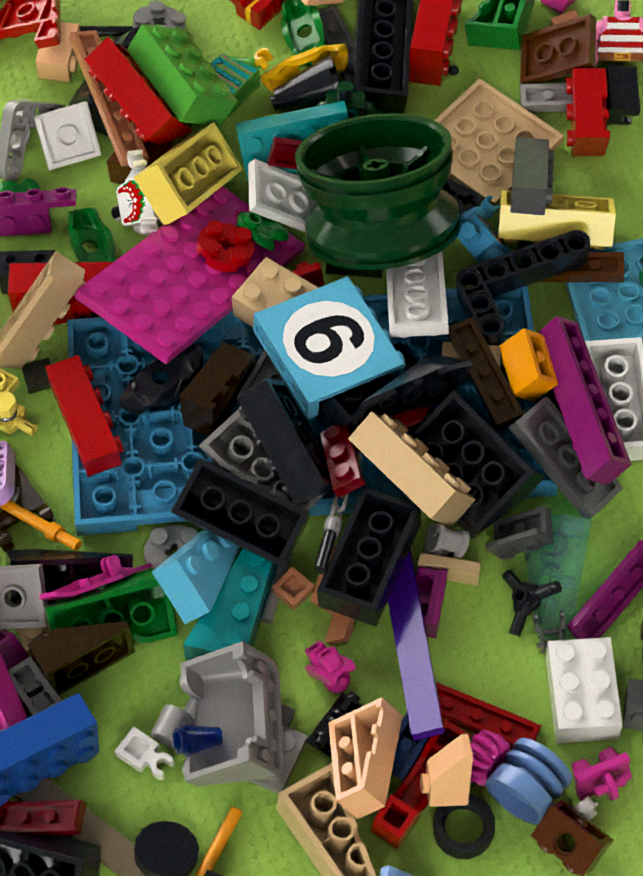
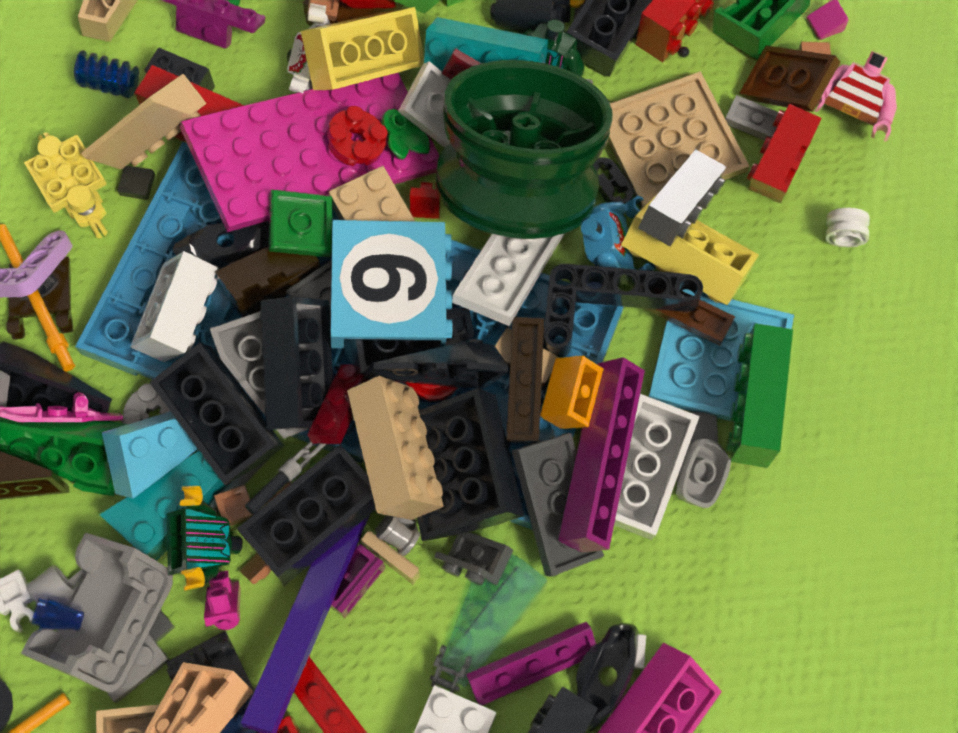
camera: 25 degrees right, 10 degrees up
(84, 416) = (137, 244): red brick -> none
(87, 227) = (256, 57): green piece -> none
(154, 445) = (175, 307): none -> white brick
(224, 331) = (300, 223): none -> green tile
(282, 620) = (198, 540): none -> torso
(527, 598) = (444, 625): black piece -> none
(622, 94) = (828, 148): black hinge -> none

